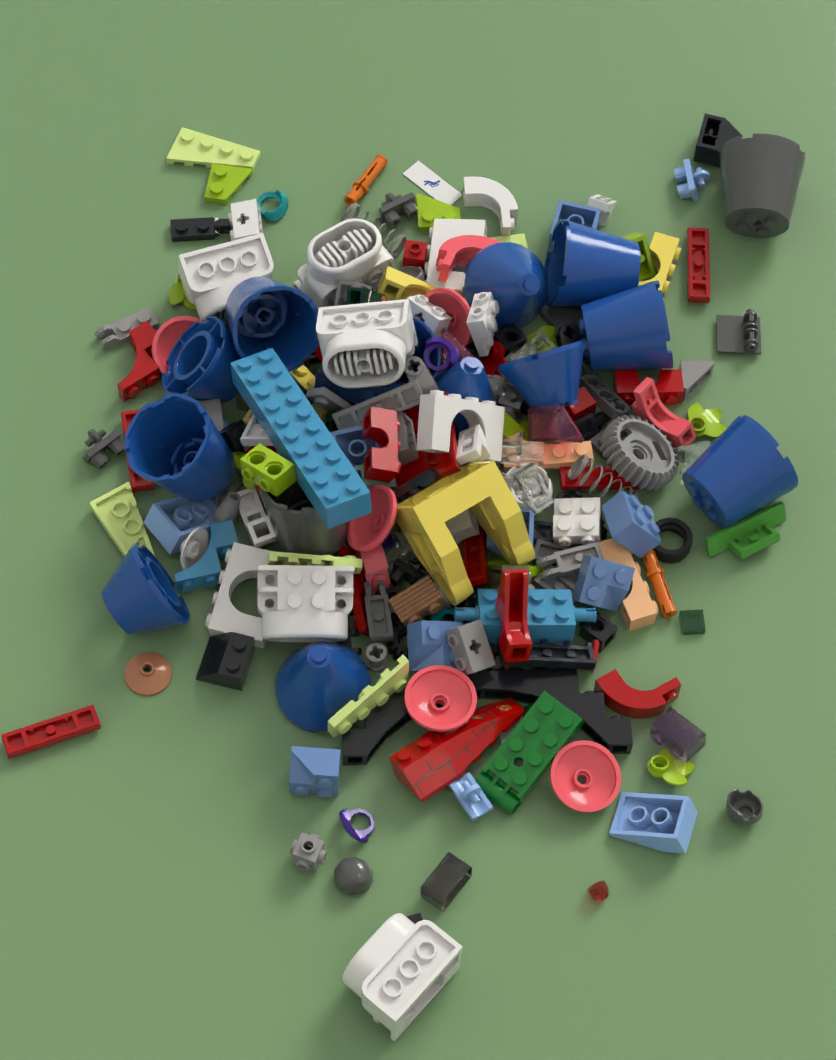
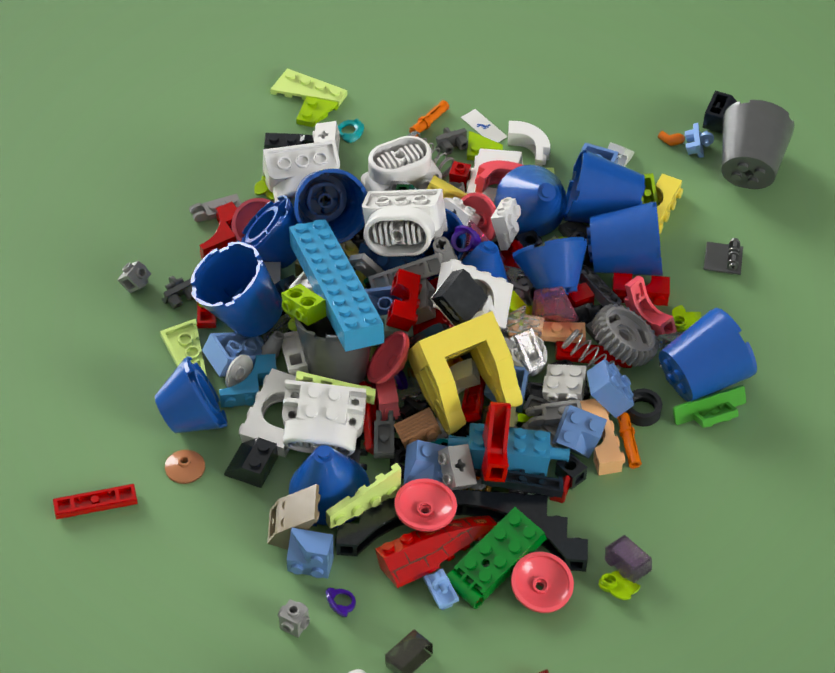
camera: 10 degrees right, 10 degrees down
(45, 433) = (134, 276): none -> light grey brick
(288, 726) = (294, 511): none -> slope
(353, 875) = (330, 641): dark grey hair -> none
(376, 650) = (377, 467): light grey bush -> none
(448, 439) = (459, 297): none -> black piece
(634, 702) = (596, 530): red arch -> none
(655, 821) = (599, 626): light blue slope -> none
(659, 181) = (671, 140): none -> orange arm
(692, 622) = (653, 473): clear green tile -> none
(694, 375) = (681, 284): light grey slope -> none
(698, 265) = (696, 203): red plate -> none
(744, 807) = (678, 623): dark grey hair -> none

